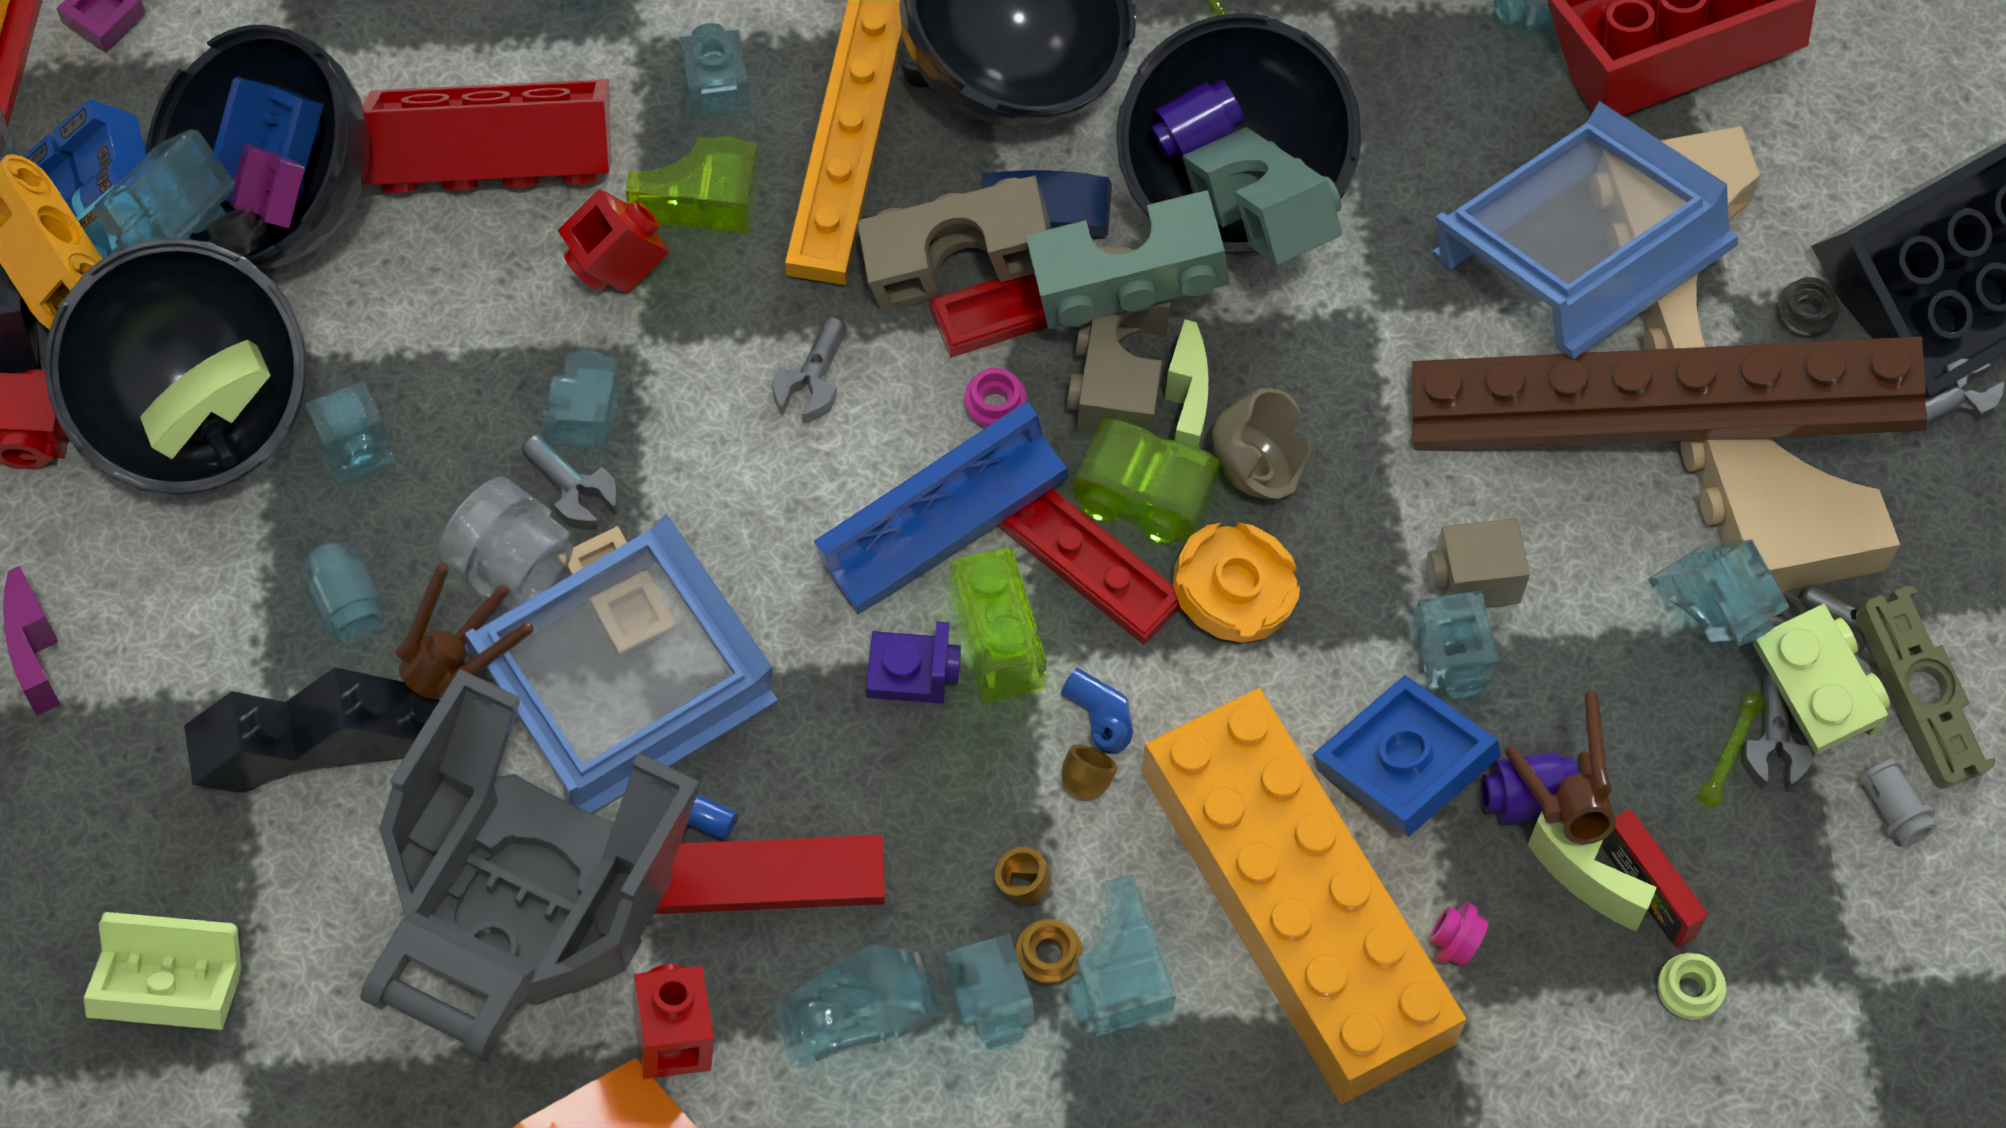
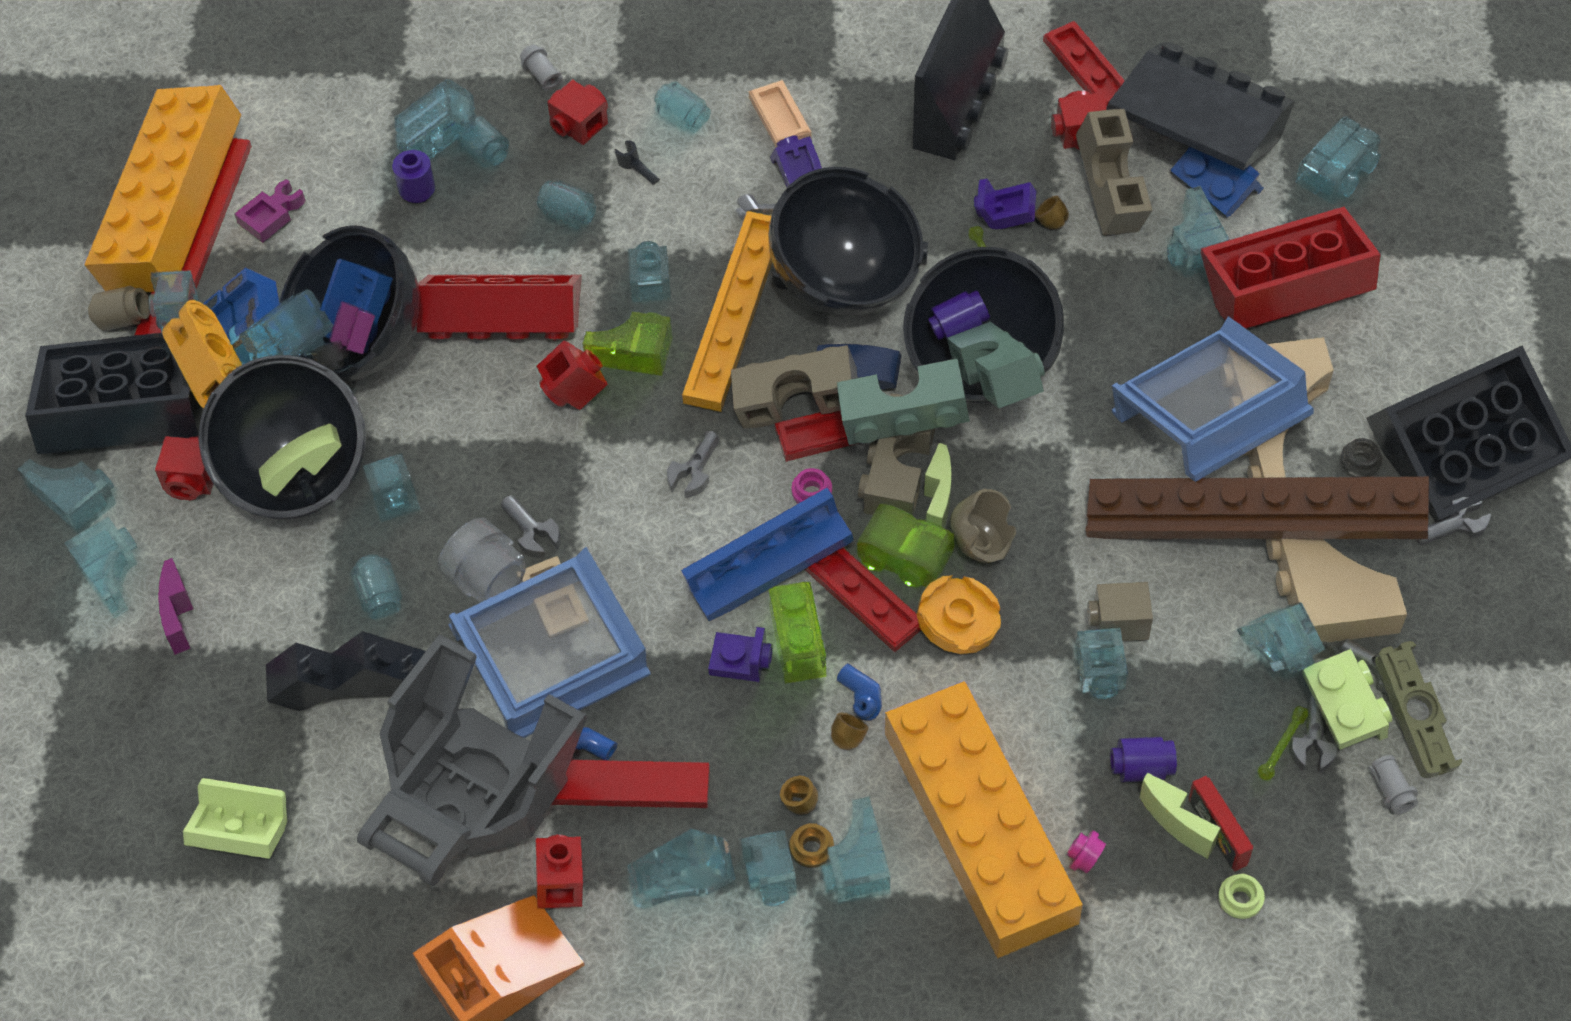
camera: 10 degrees right, 5 degrees down
(435, 659) = (427, 628): reddish brown plant -> none
(583, 401) = (543, 475): clear light blue brick -> none
(1407, 755) = (1061, 732): blue plate -> none
(1582, 798) = (1173, 765): reddish brown plant -> none

